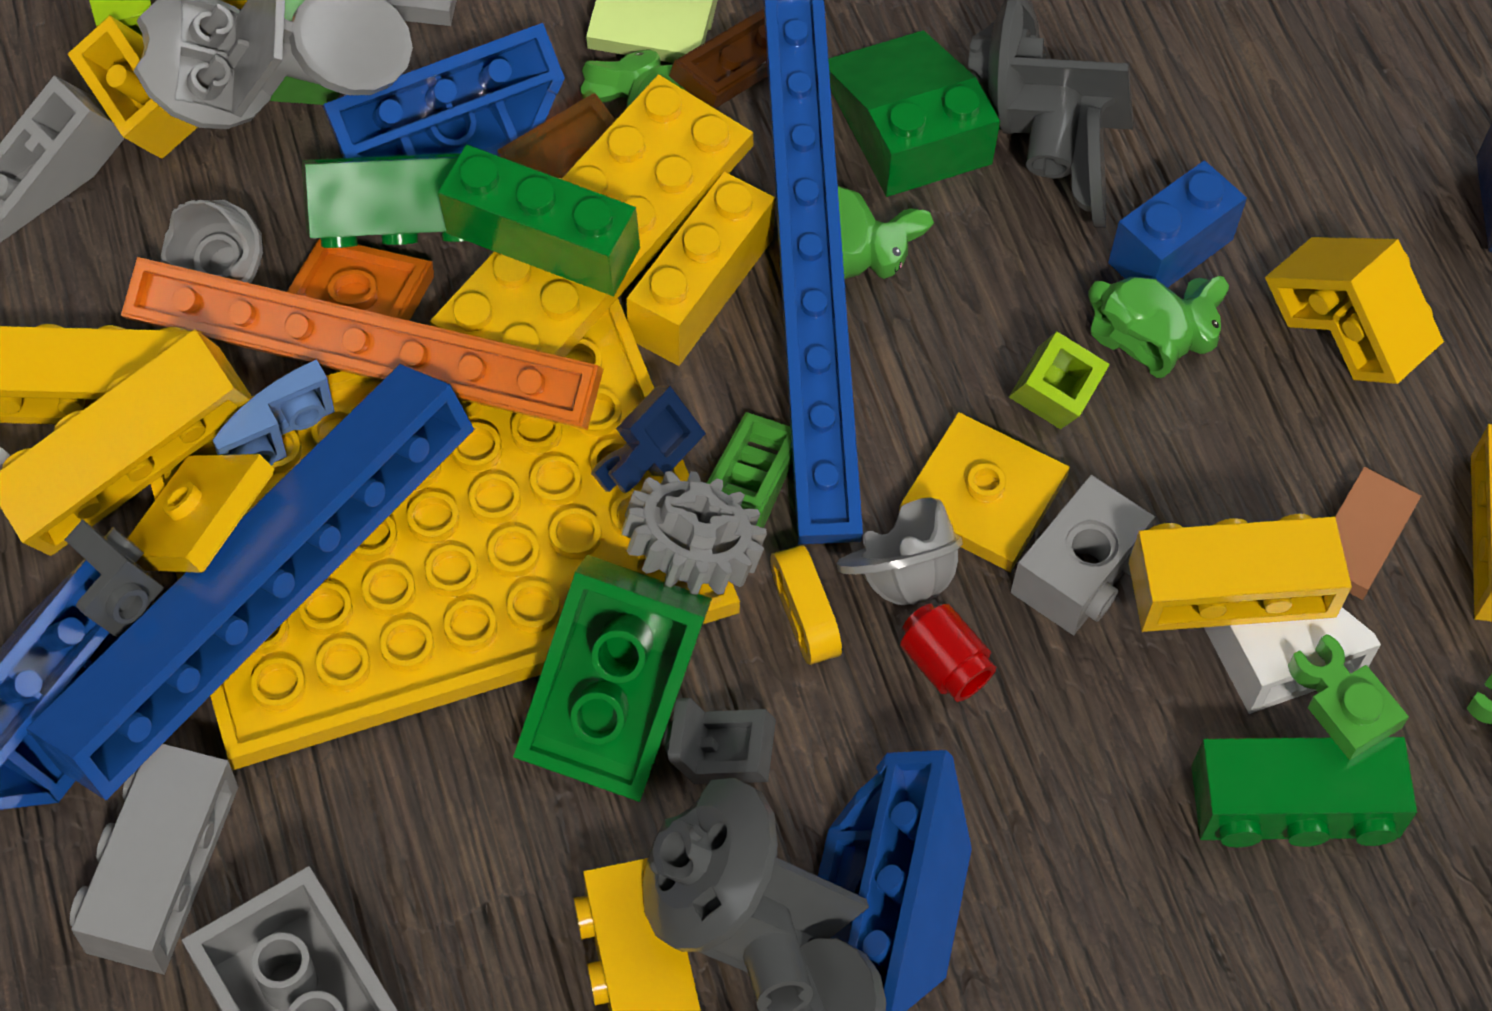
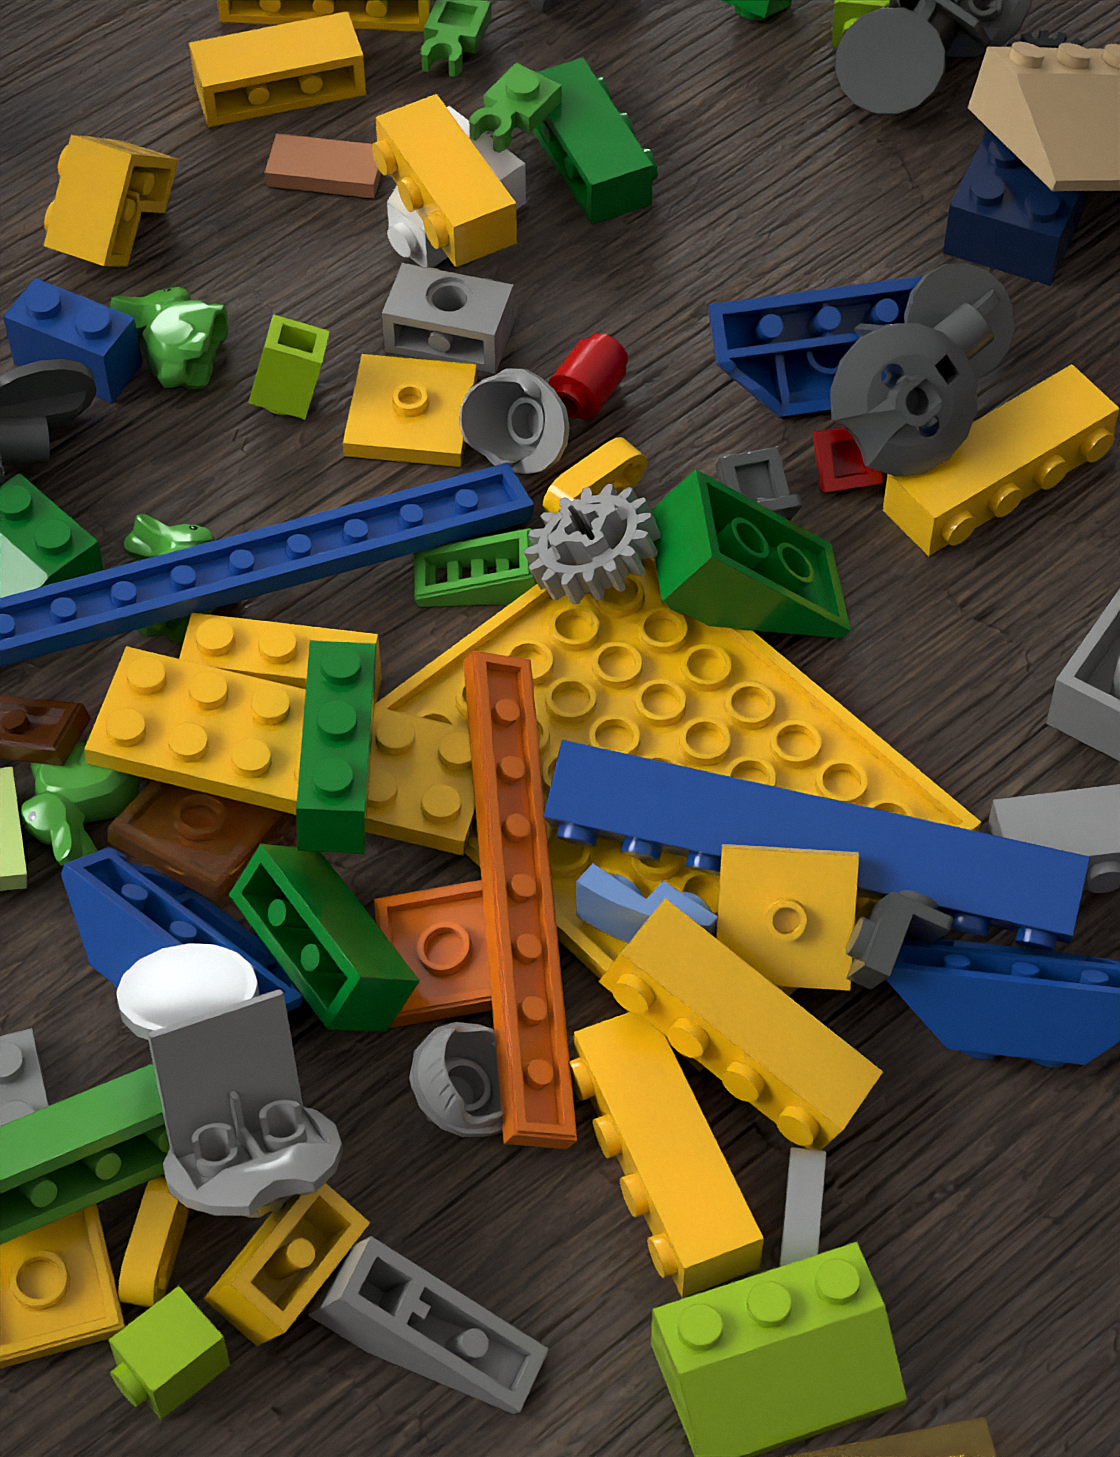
camera: 110 degrees left, 5 degrees down
(656, 437) = (500, 615): dark blue plate -> none

